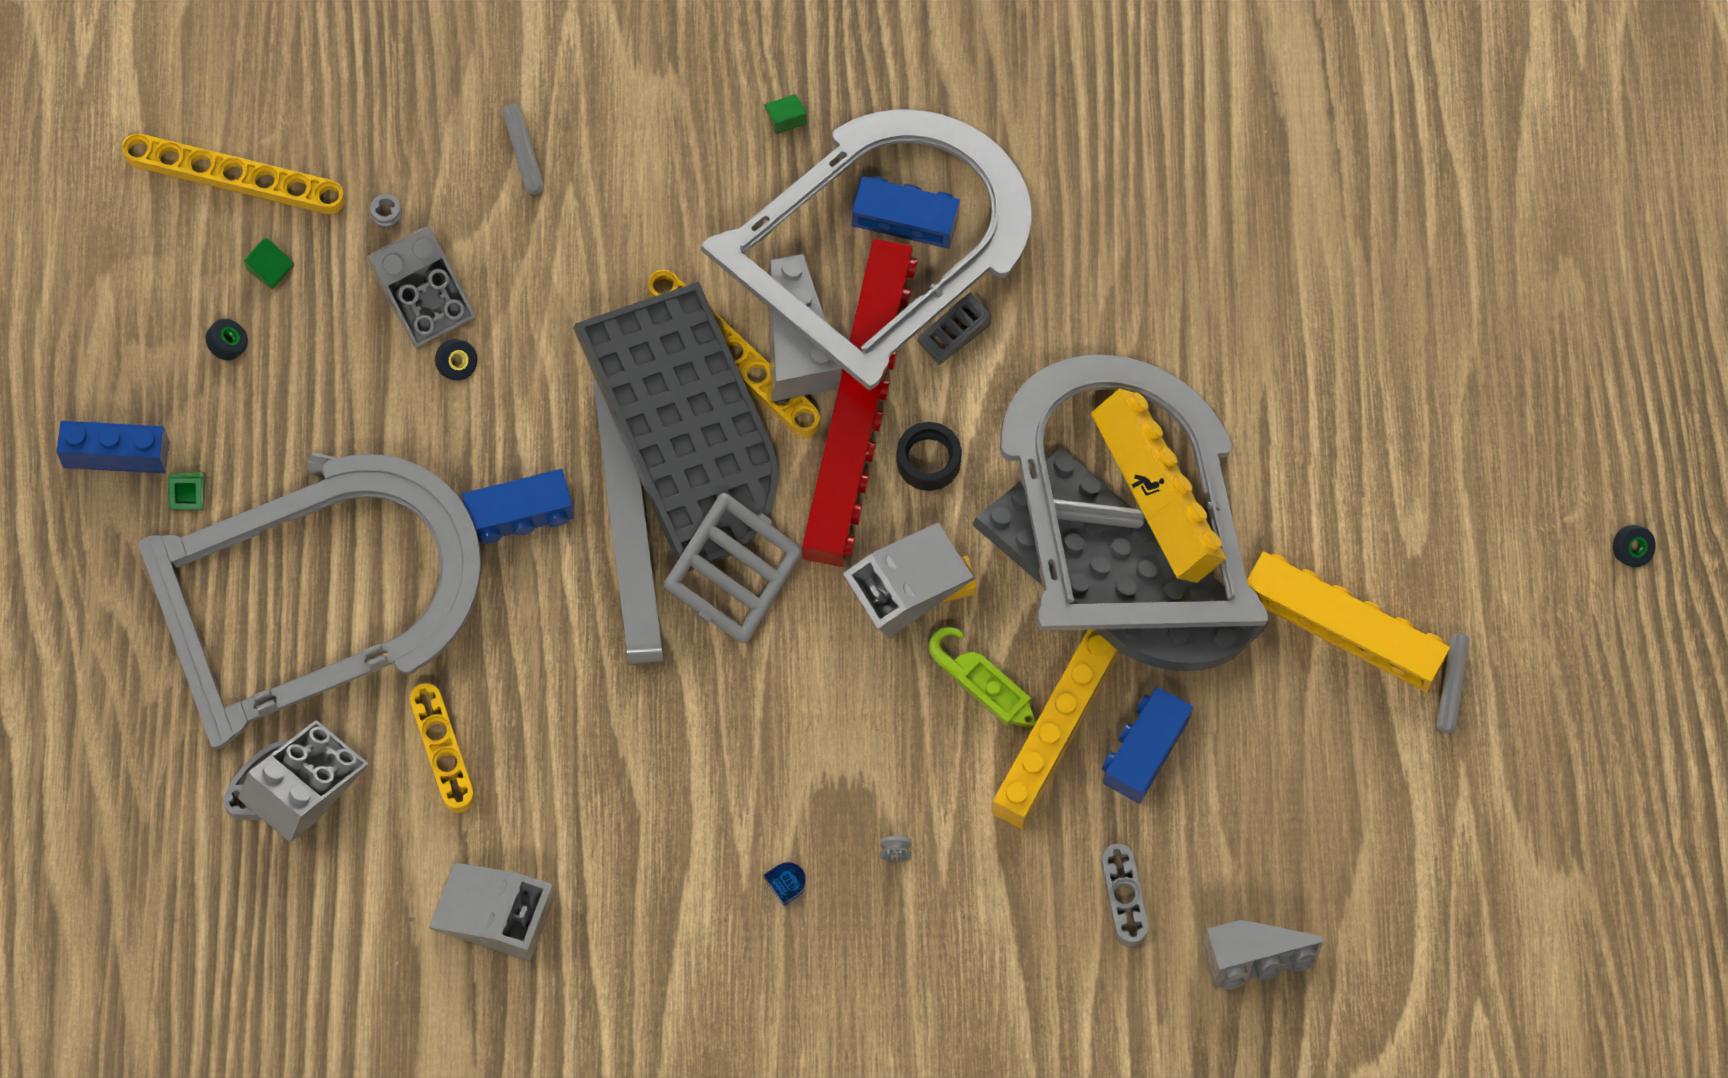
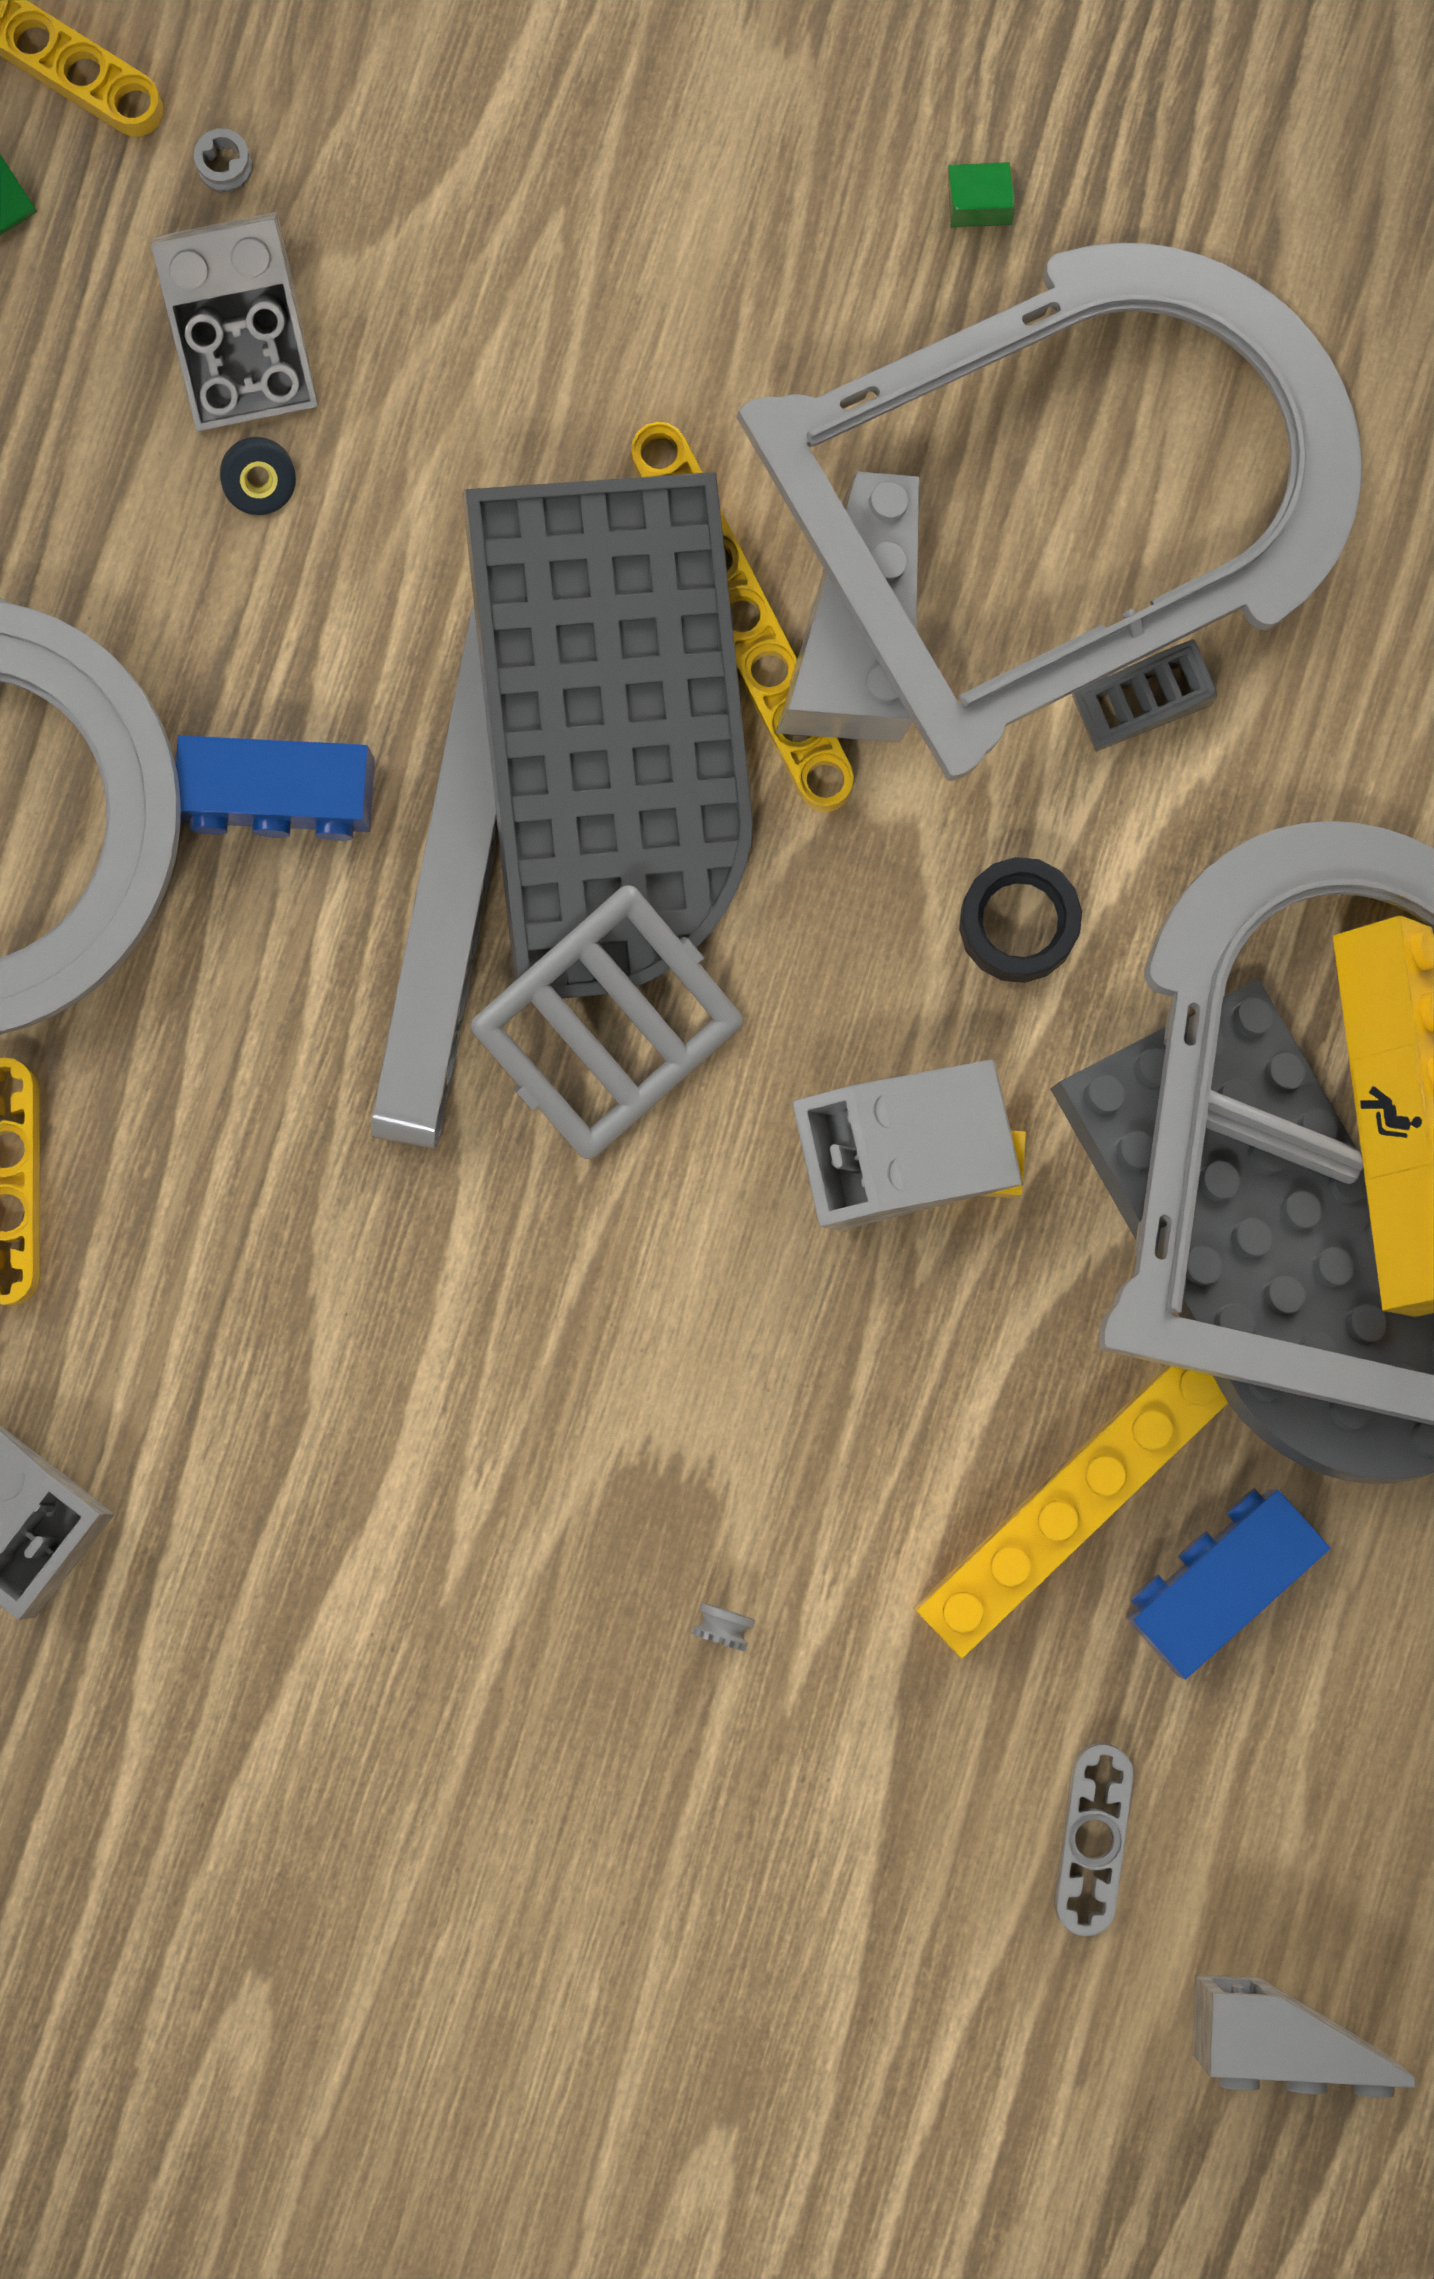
camera: 25 degrees right, 15 degrees up
(523, 149) = (497, 119): light grey axle -> none
(786, 881) = (517, 1618): clear blue tile -> none
(857, 411) = (914, 800): red brick -> none
(905, 212) = (1130, 447): blue brick -> none
(983, 681) = (977, 1368): lime plate -> none

